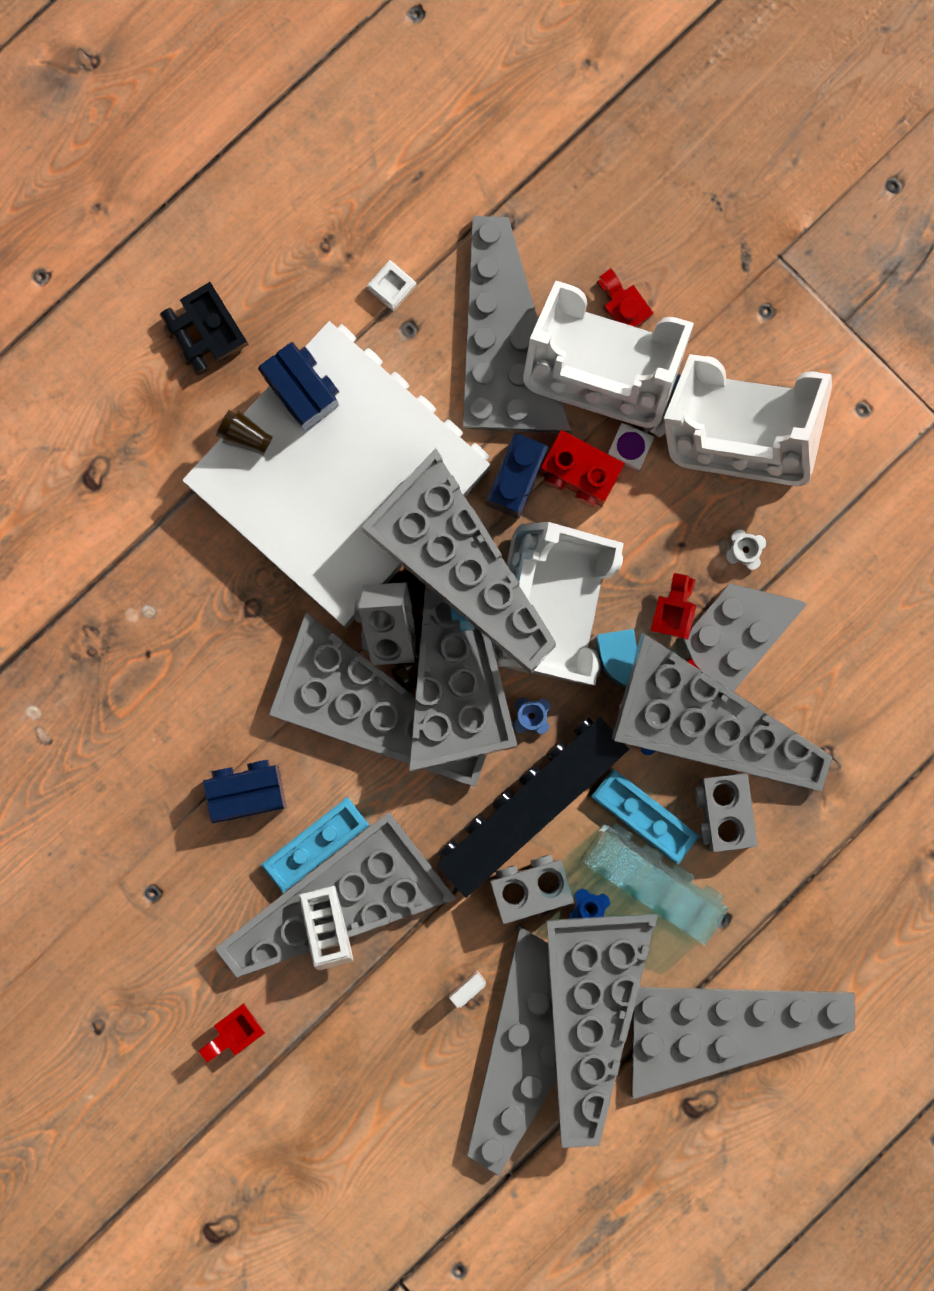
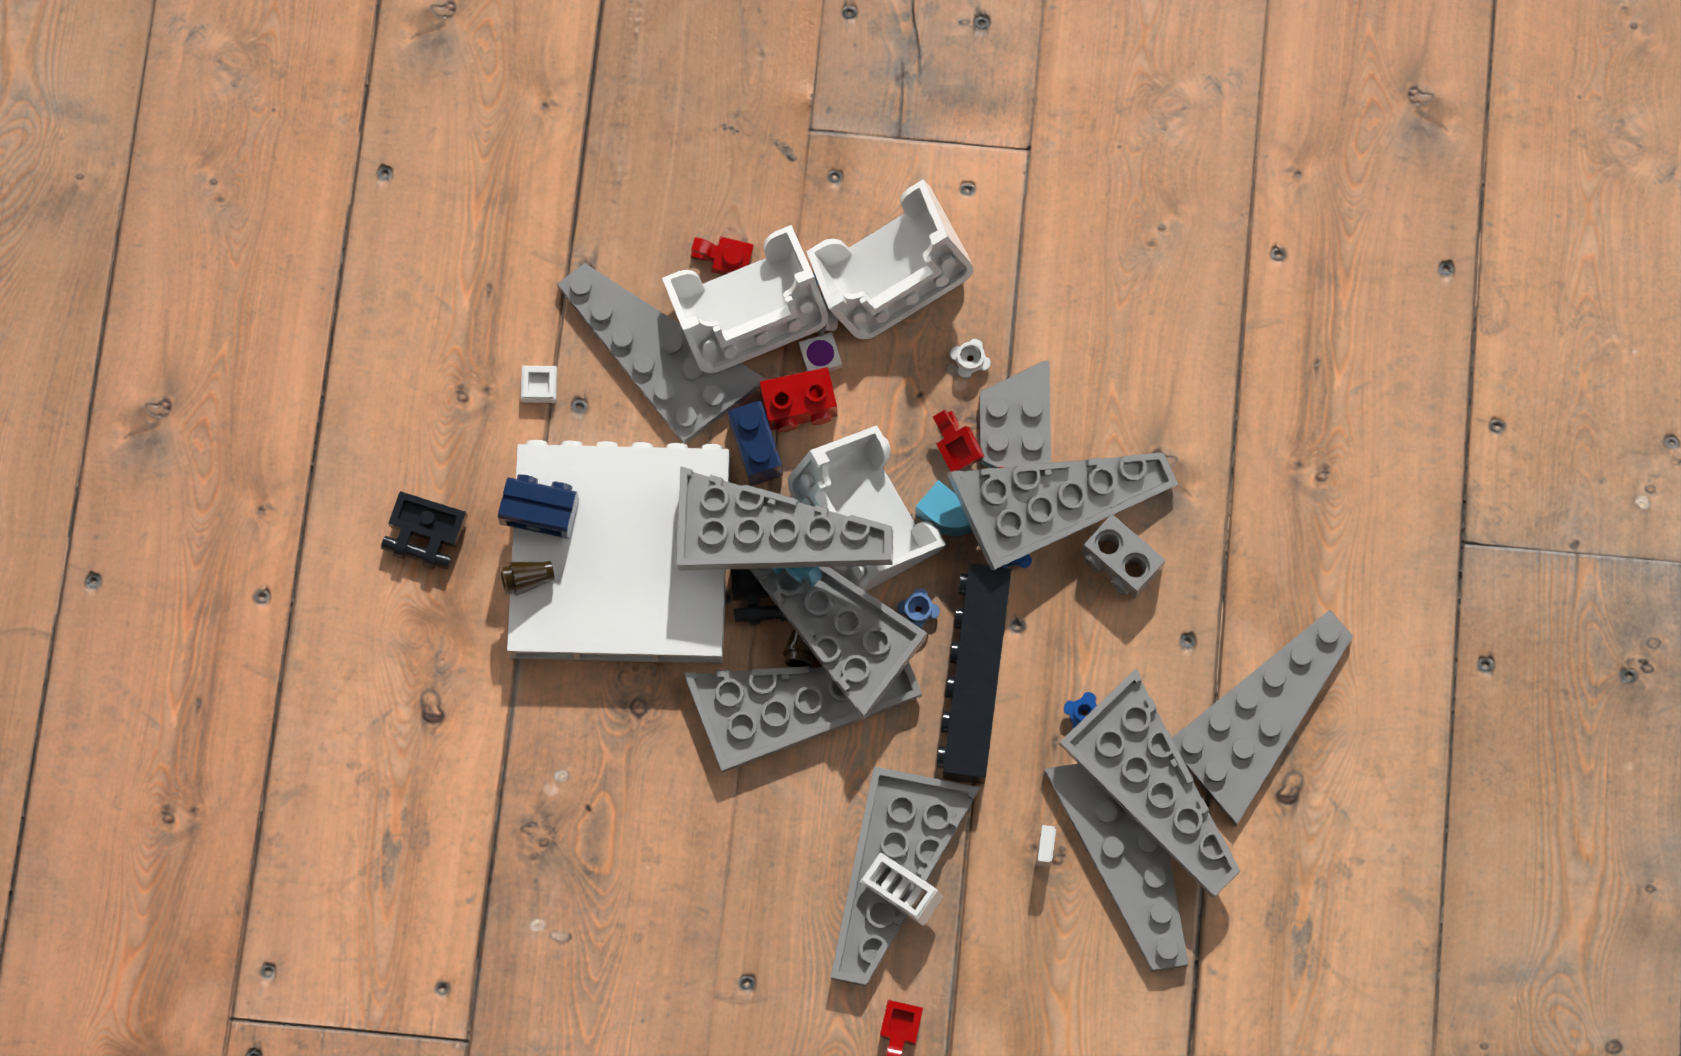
camera: 40 degrees left, 10 degrees down
(245, 792) = (753, 843): dark blue brick -> none
(315, 845) = (839, 840): medium azure tile -> none
(387, 623) = (753, 627): light grey brick -> none
(533, 900) = (1035, 737): light grey brick -> none
(645, 816) = (1065, 612): medium azure tile -> none
(654, 883) = (1114, 651): clear light blue wedge -> none

